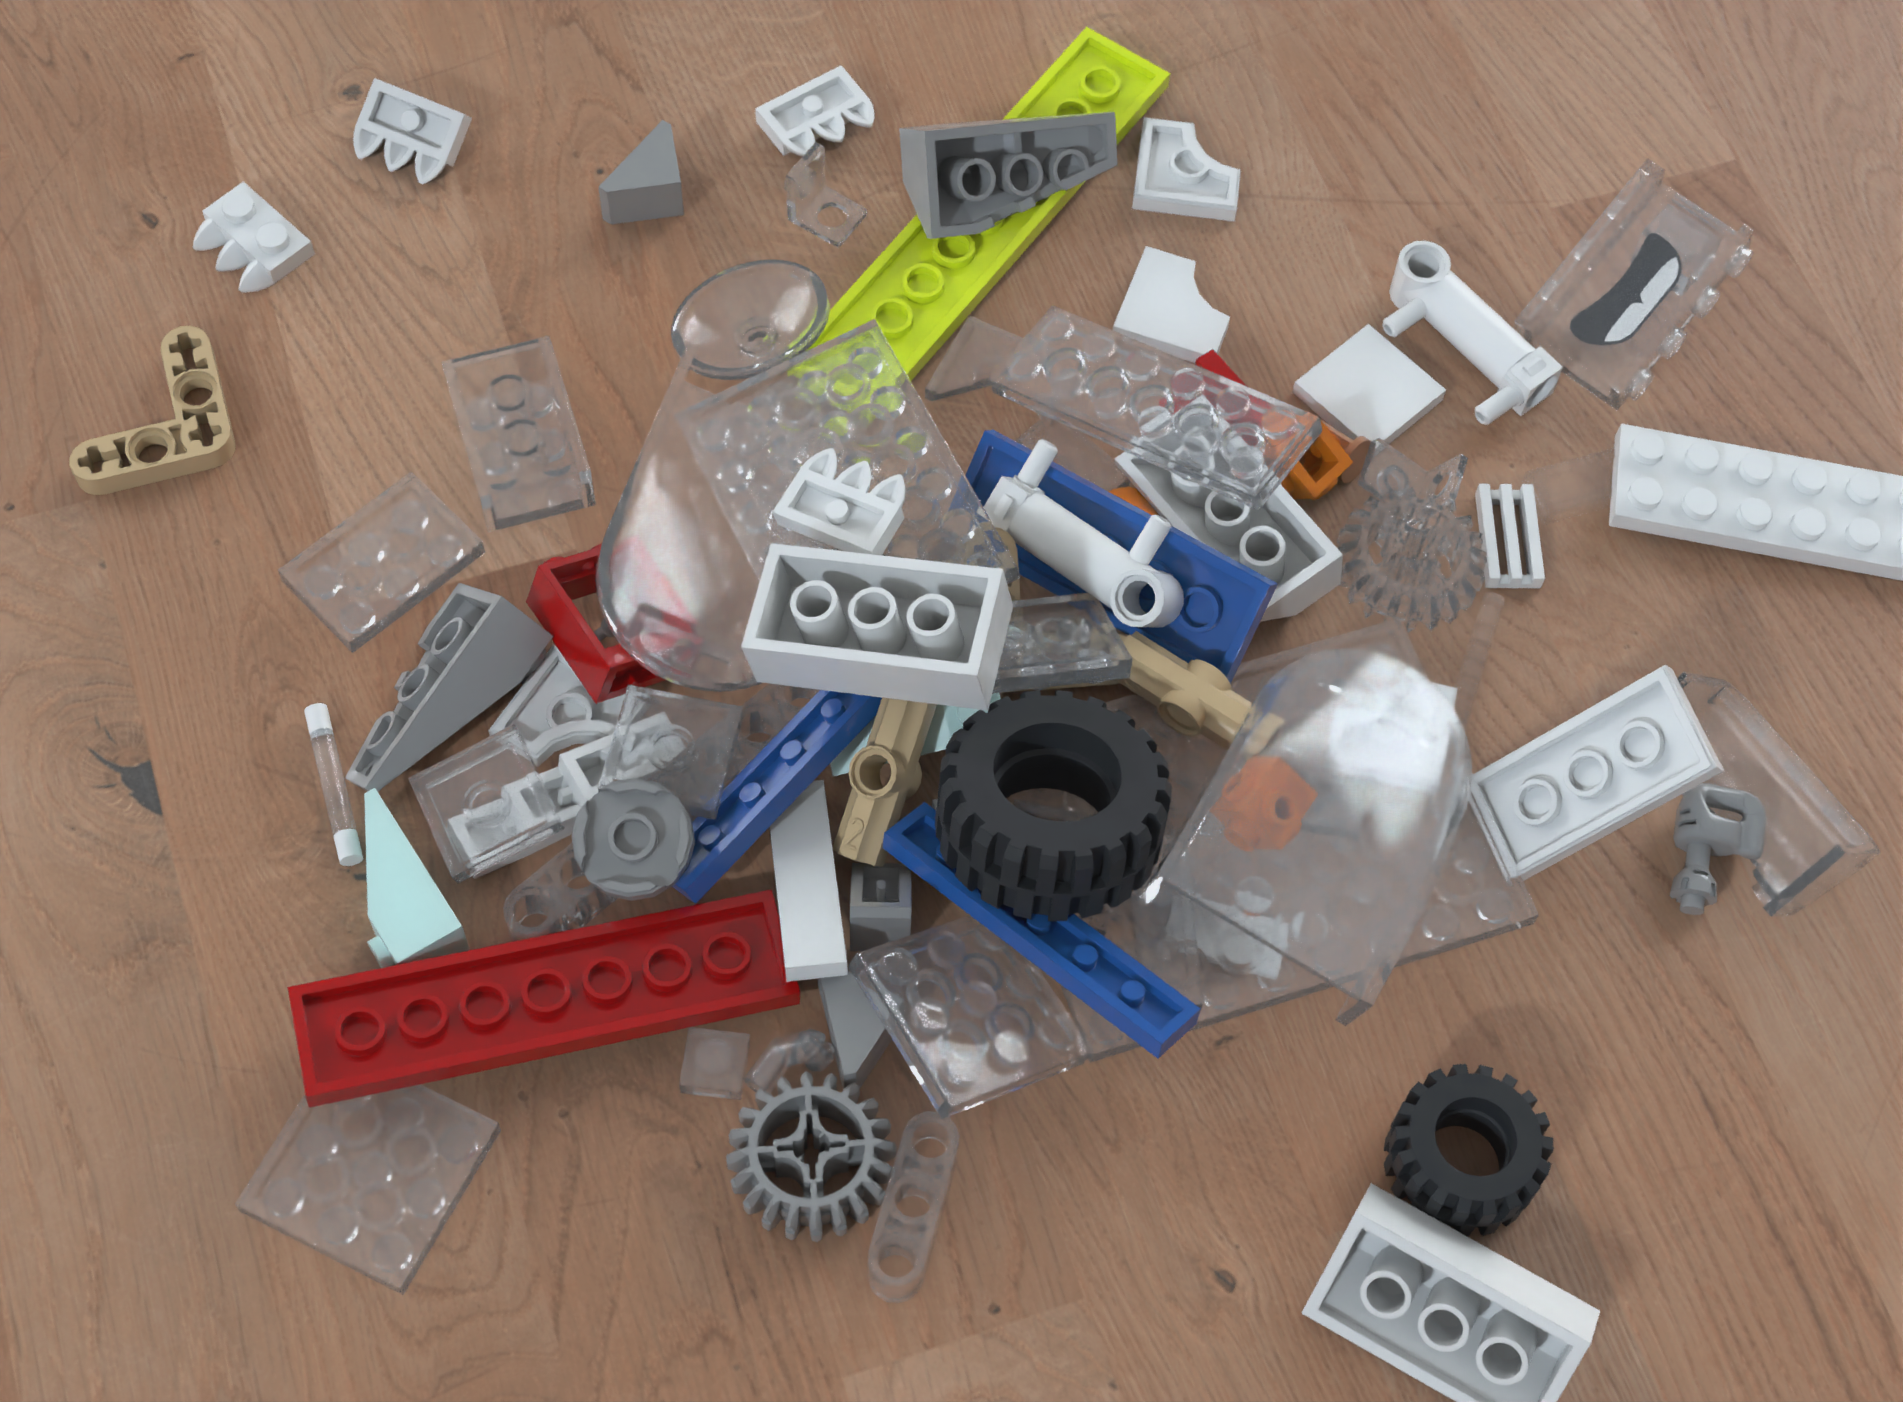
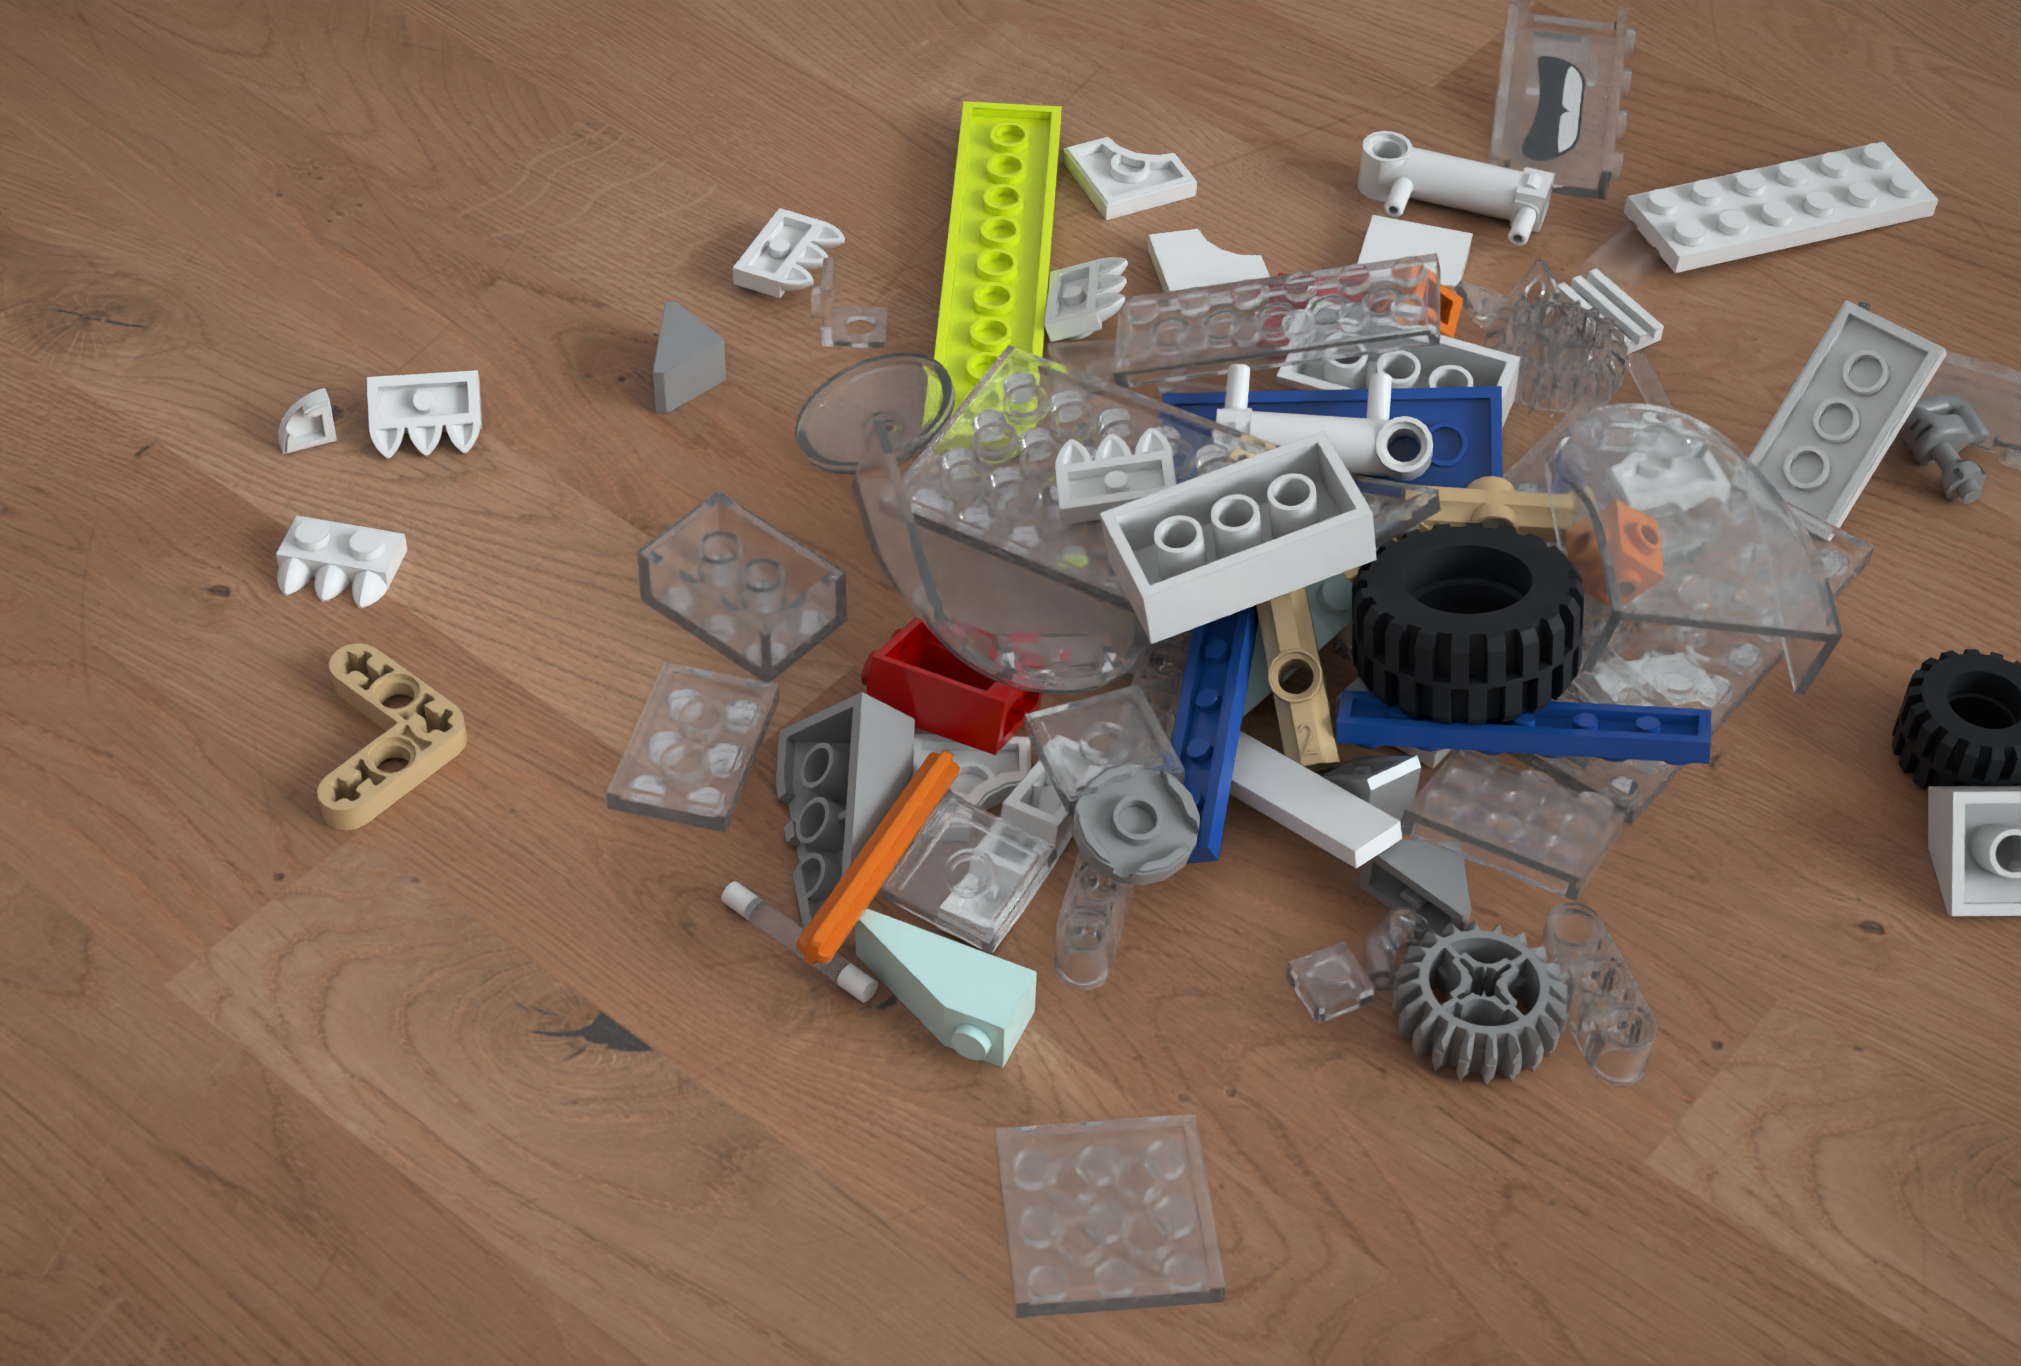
camera: 30 degrees left, 15 degrees down
(314, 97) = (307, 423): none -> white tile
(420, 751) = (877, 859): none -> orange axle
(539, 997) = (1143, 1001): red plate -> none
(986, 170) = (988, 220): light grey wedge -> none
(1024, 284) = (1084, 297): none -> white plate

